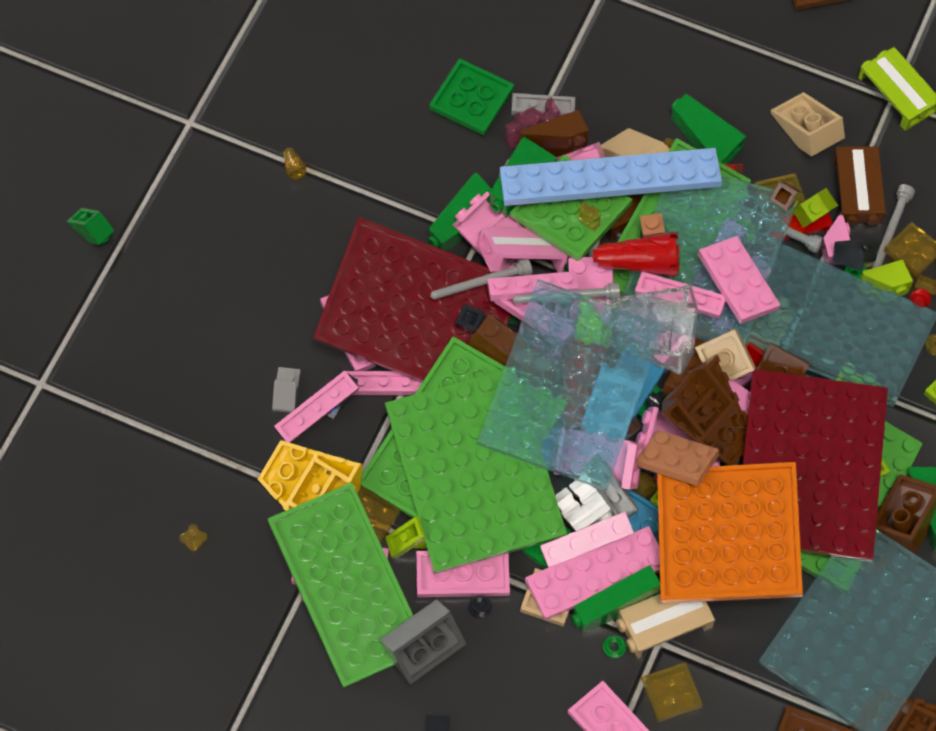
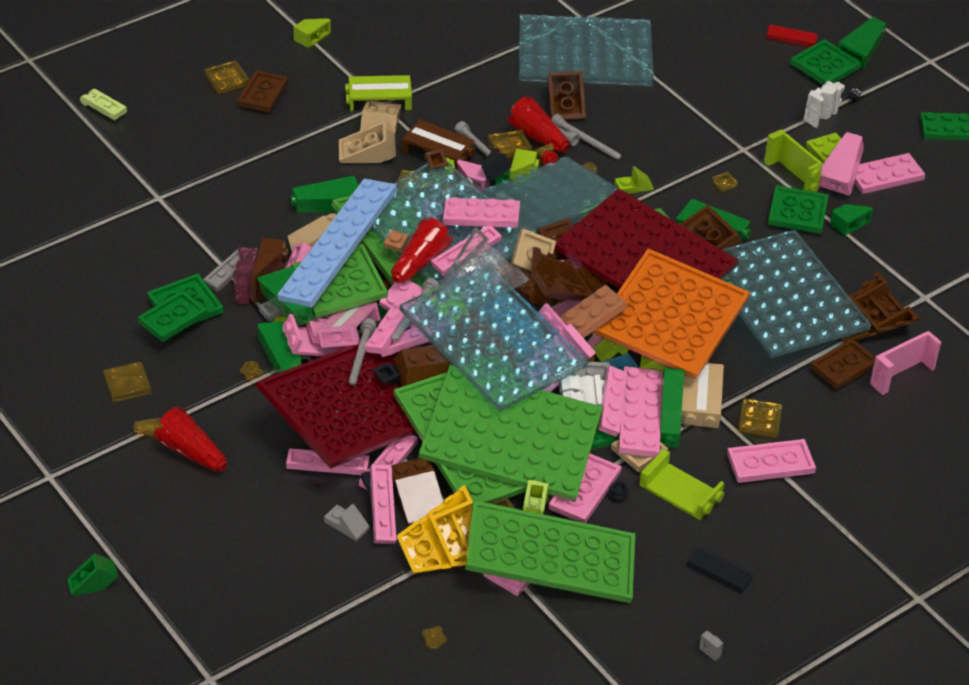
camera: 60 degrees left, 20 degrees down
(293, 204) = (187, 438): none -> red cone
(341, 112) = (127, 381): none -> clear yellow plate
(357, 427) = (415, 488): none -> slope
(423, 197) = (251, 370): none -> clear yellow plate
(423, 641) = (630, 527): dark grey slope -> none
(436, 97) = (172, 316): none -> green plate
(524, 661) = (679, 487): none -> lime panel
(589, 216) = (361, 267): clear yellow plate -> none
(614, 640) = (703, 432): green plate -> none
(863, 109) = (377, 112): none -> tan slope

